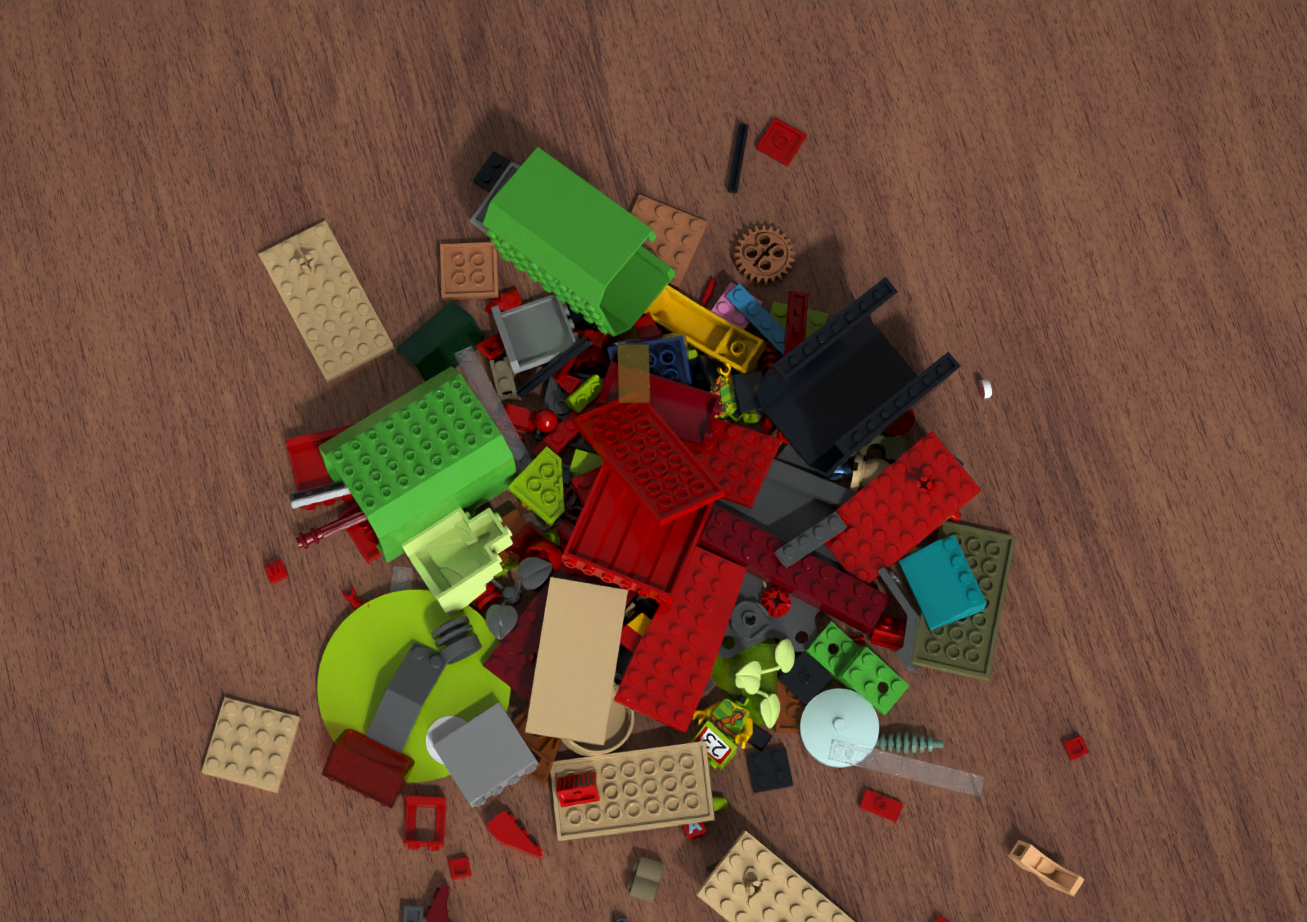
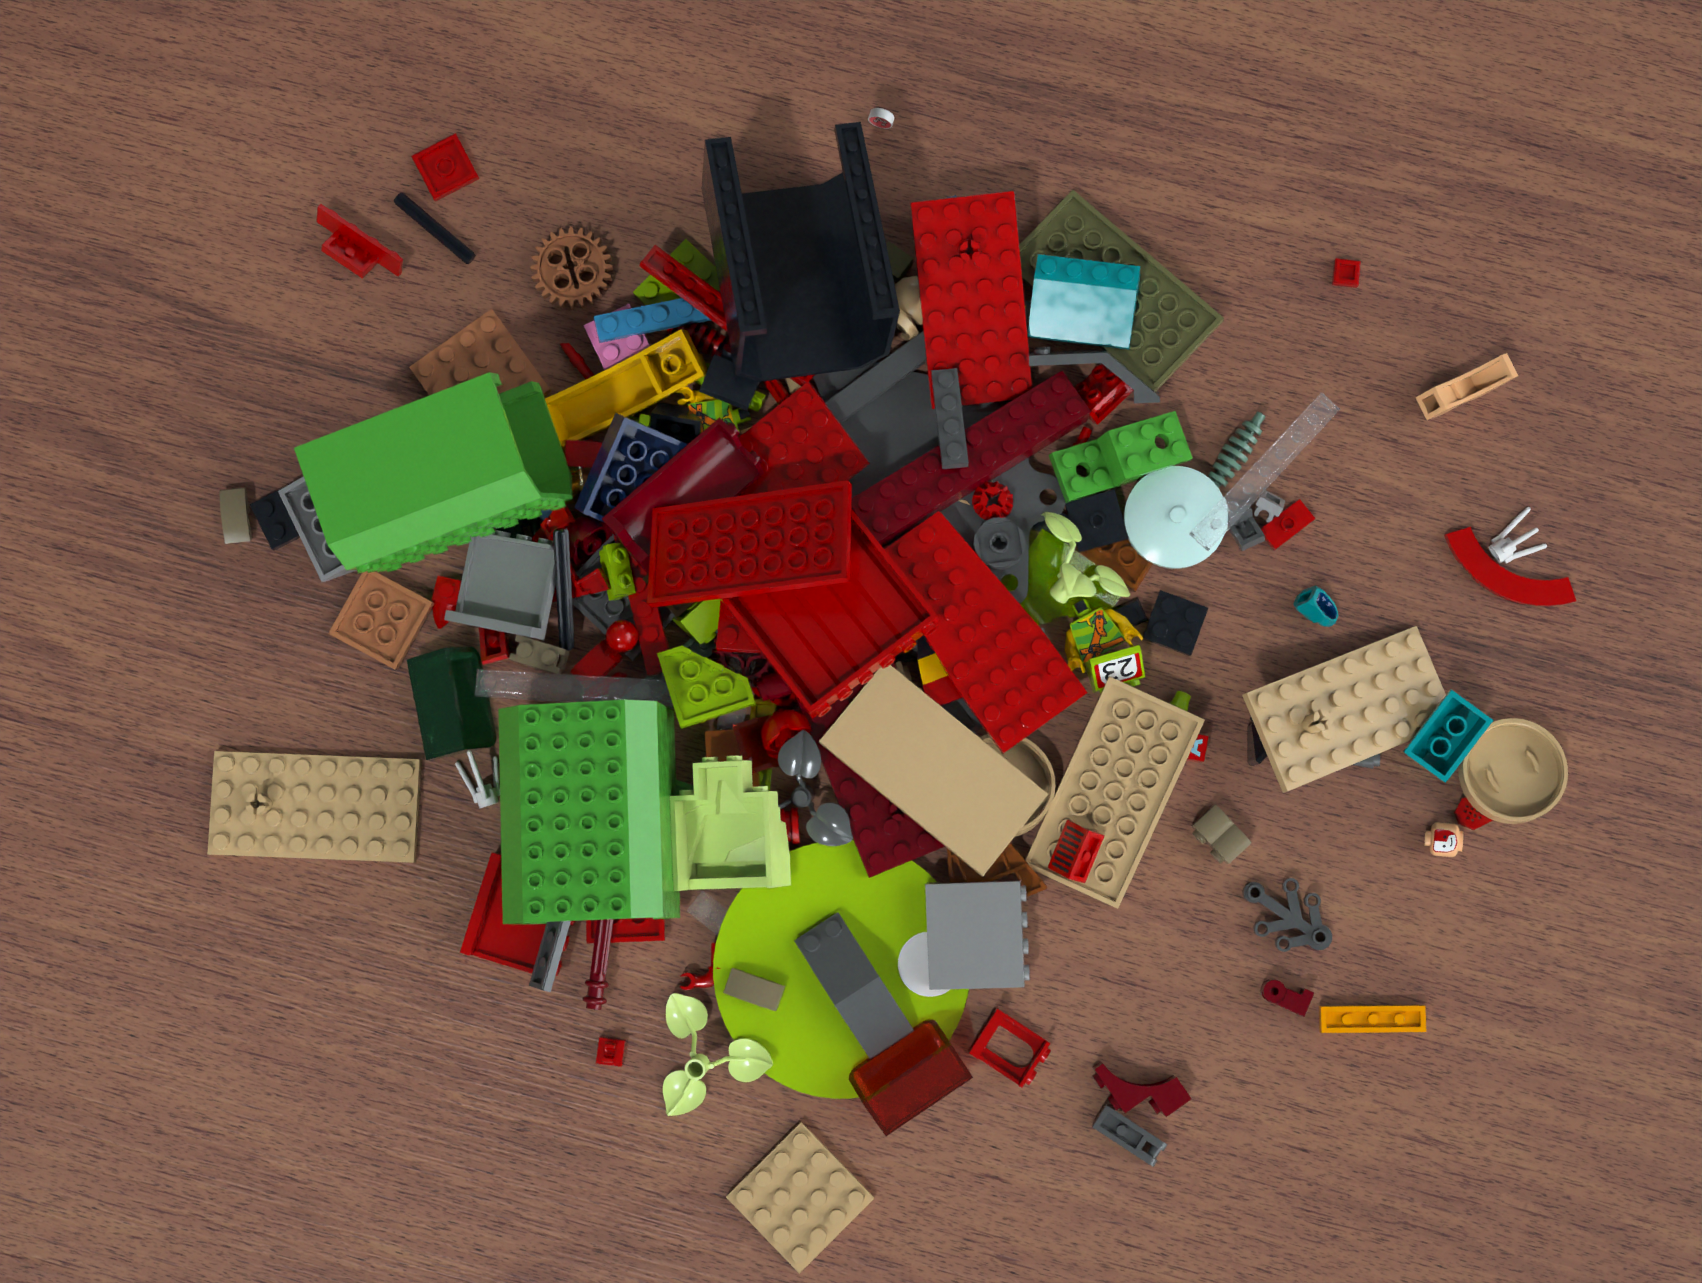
camera: 55 degrees left, 10 degrees up
(277, 629) = (682, 1087): none -> yellowish green plant
(368, 635) = (754, 989): none -> dark tan slope
(395, 394) = (484, 794): none -> white plant
(455, 637) = (825, 891): dark grey wheel -> none
(460, 868) = (1083, 1037): red tile -> none
(480, 146) = (234, 515): none -> dark tan slope
(507, 833) = (1079, 959): red slope -> none
(633, 374) = (634, 501): clear yellow piece -> none
(694, 117) = (353, 247): none -> red bracket
(837, 856) = (1316, 606): none -> teal rock
(860, 779) = (1246, 531): none -> dark grey bracket
(887, 784) = (1270, 503): none -> light grey tile

